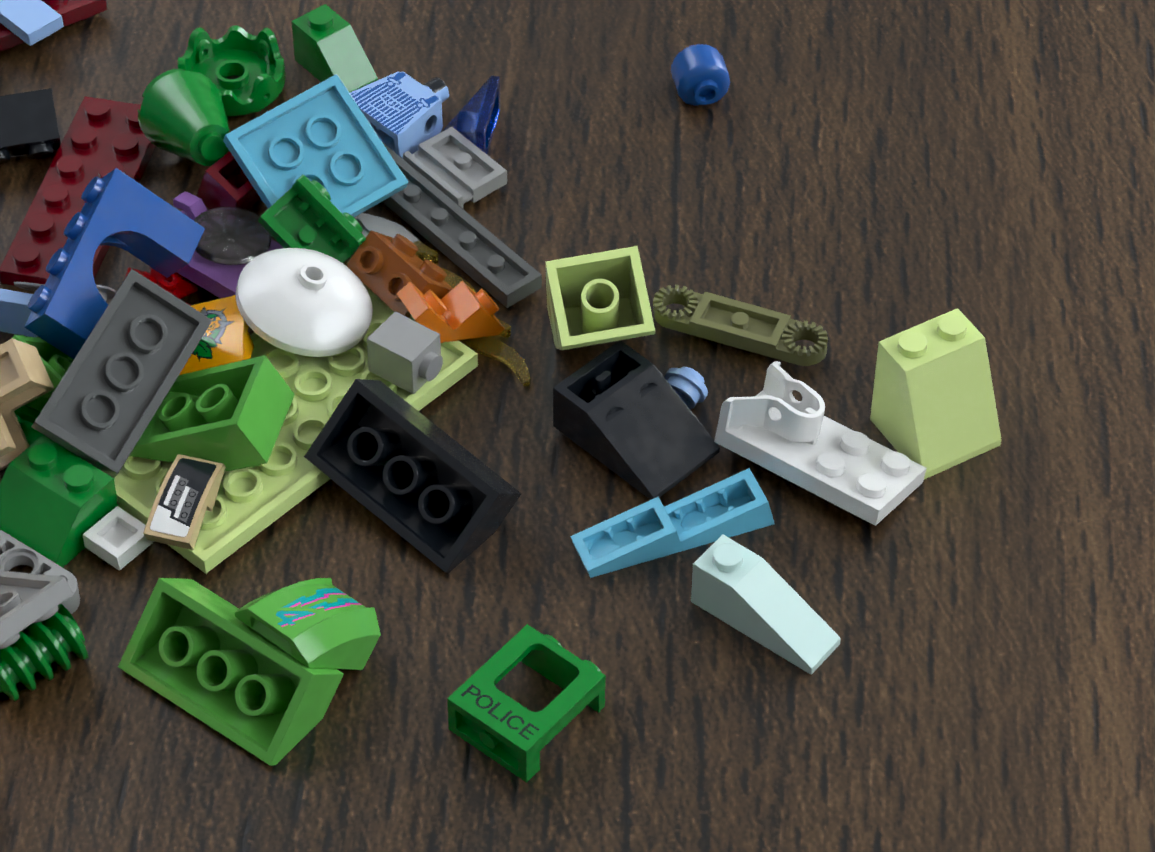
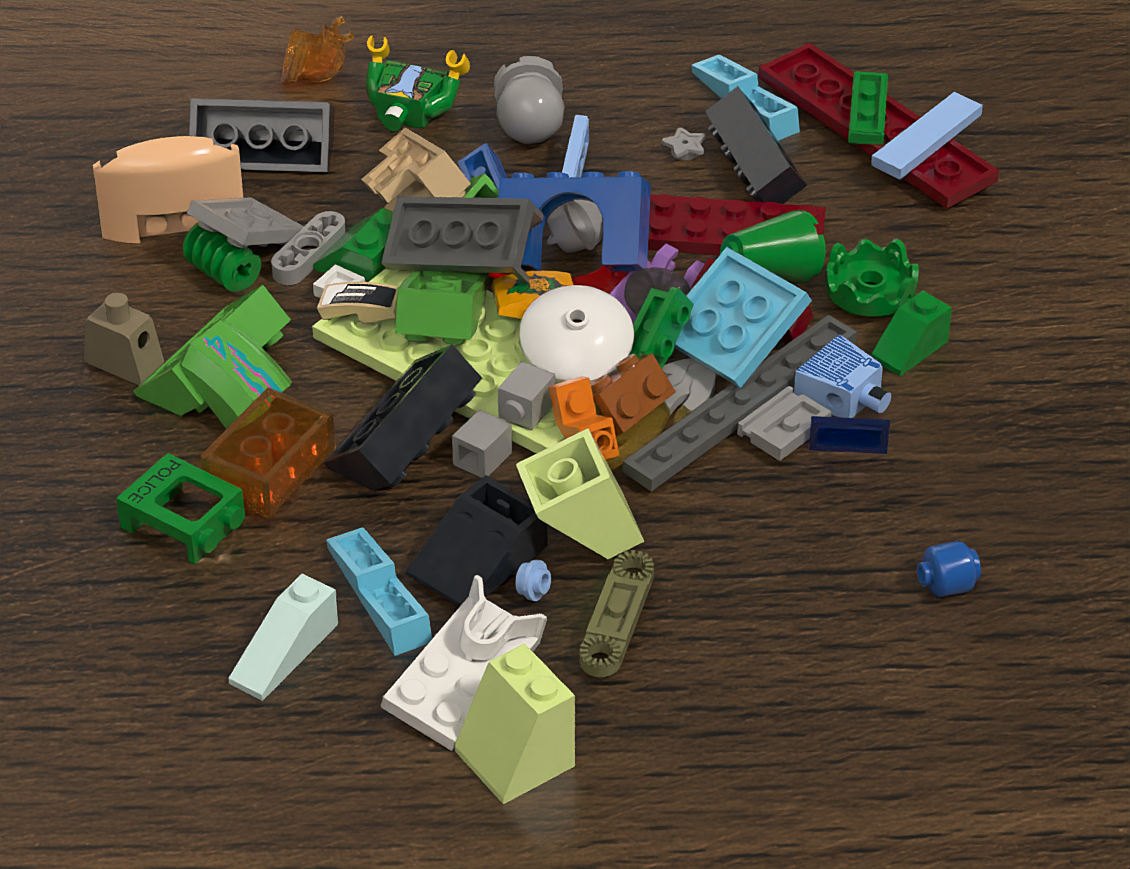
camera: 85 degrees right, 5 degrees down
(197, 758) = (122, 340): none -> dark tan torso
(449, 600) = (271, 449): none -> clear orange brick
(456, 410) = (482, 444): none -> light grey brick

